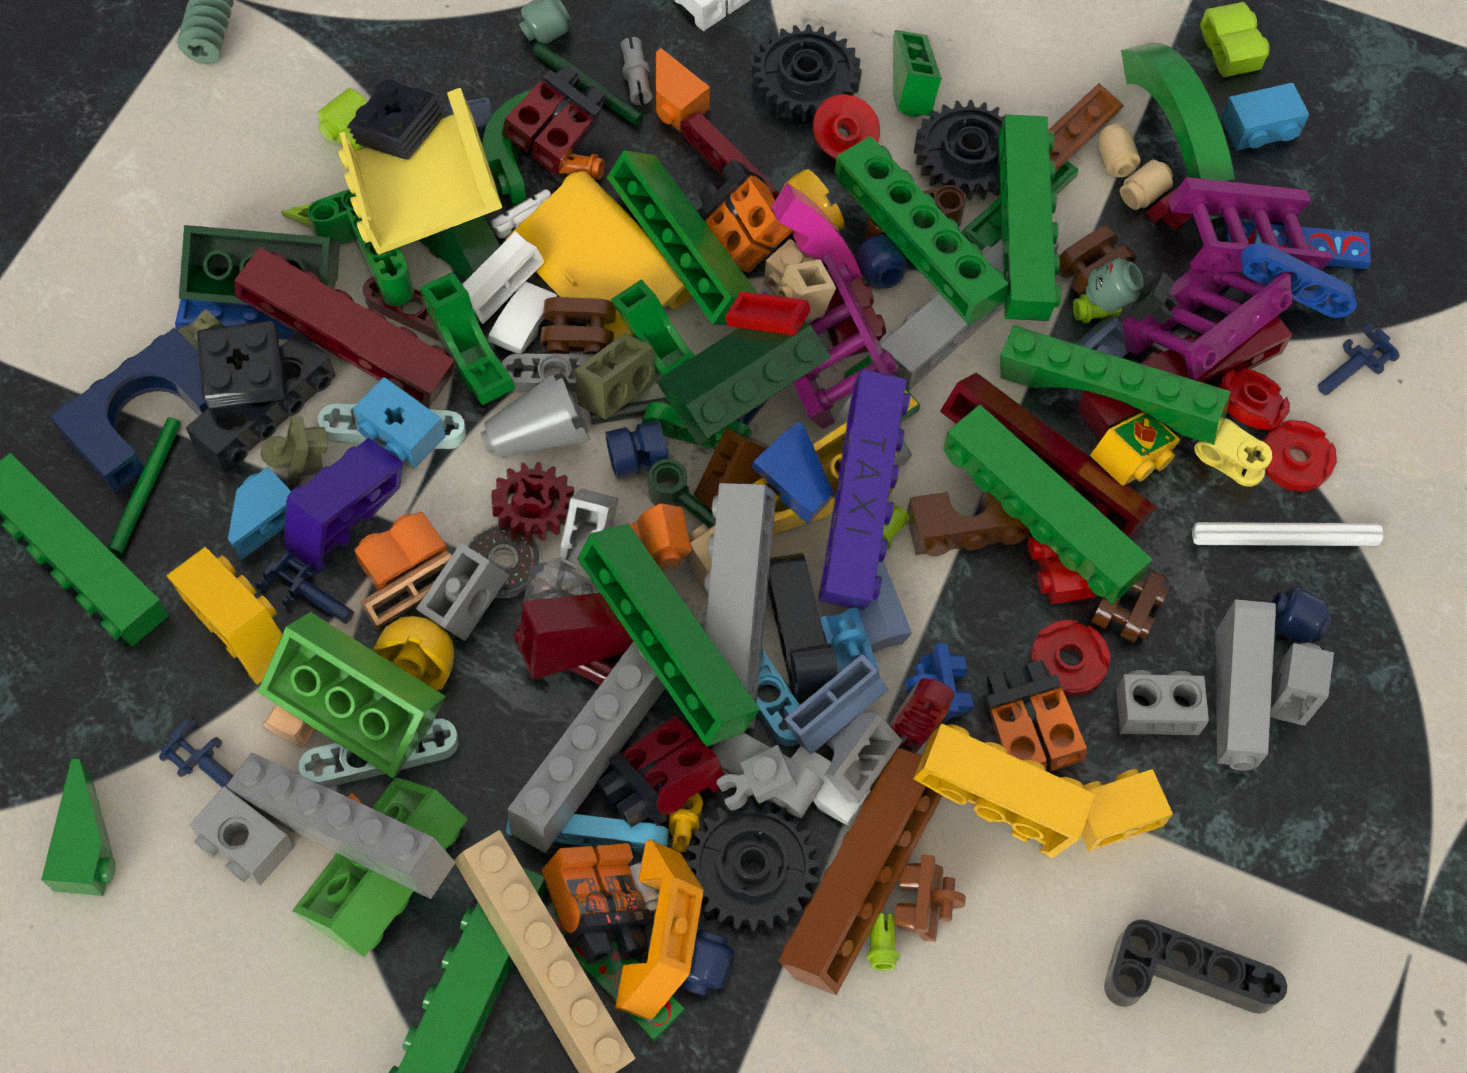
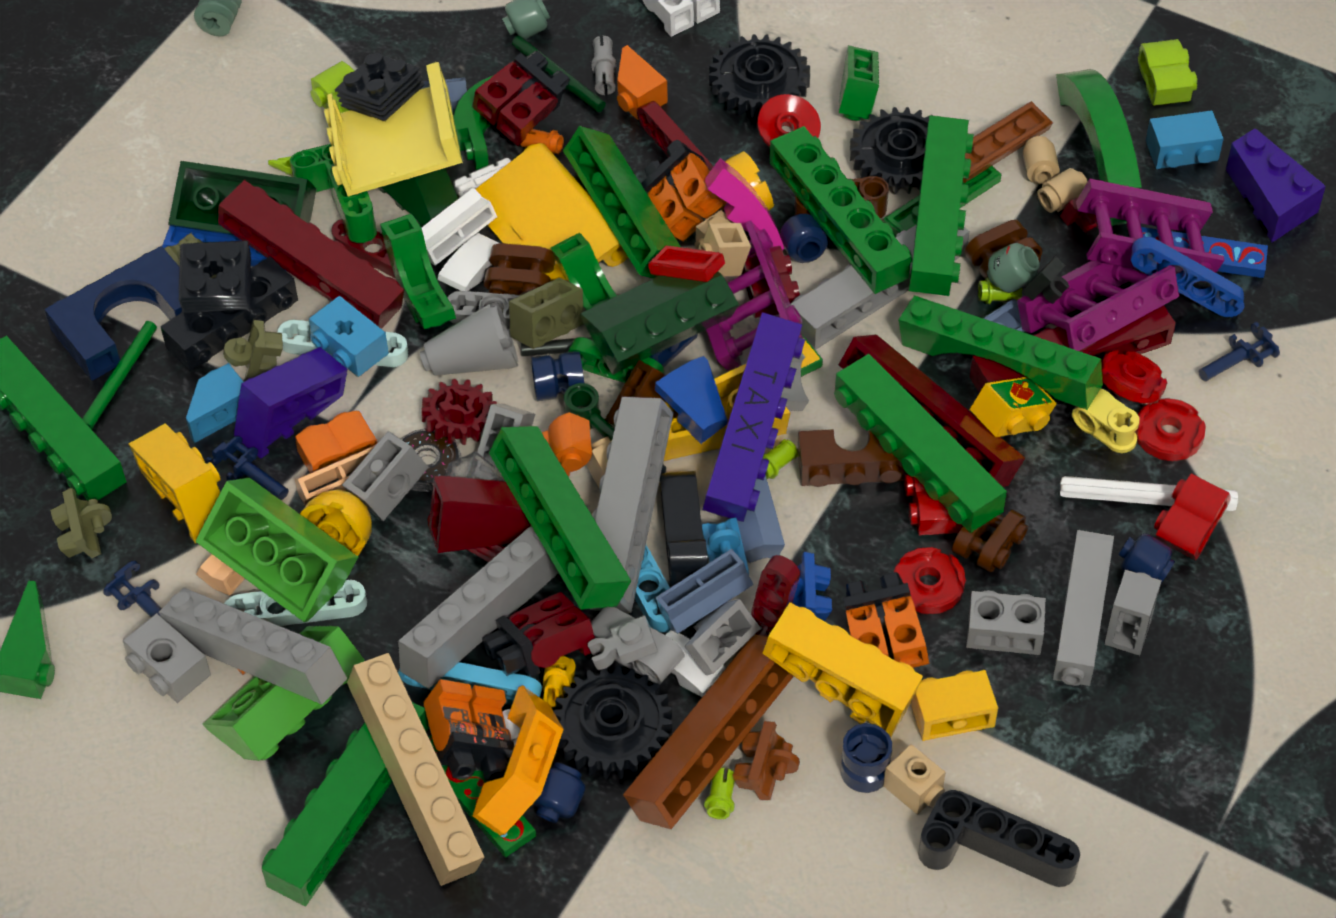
camera: 10 degrees right, 10 degrees down
(128, 676) = (85, 522): none -> olive hips
(1037, 885) = (865, 757): none -> dark blue wheel
(1093, 905) = (914, 779): none -> tan brick
(1342, 560) = (1192, 516): none -> red brick
(1364, 160) = (1273, 183): none -> dark purple wedge

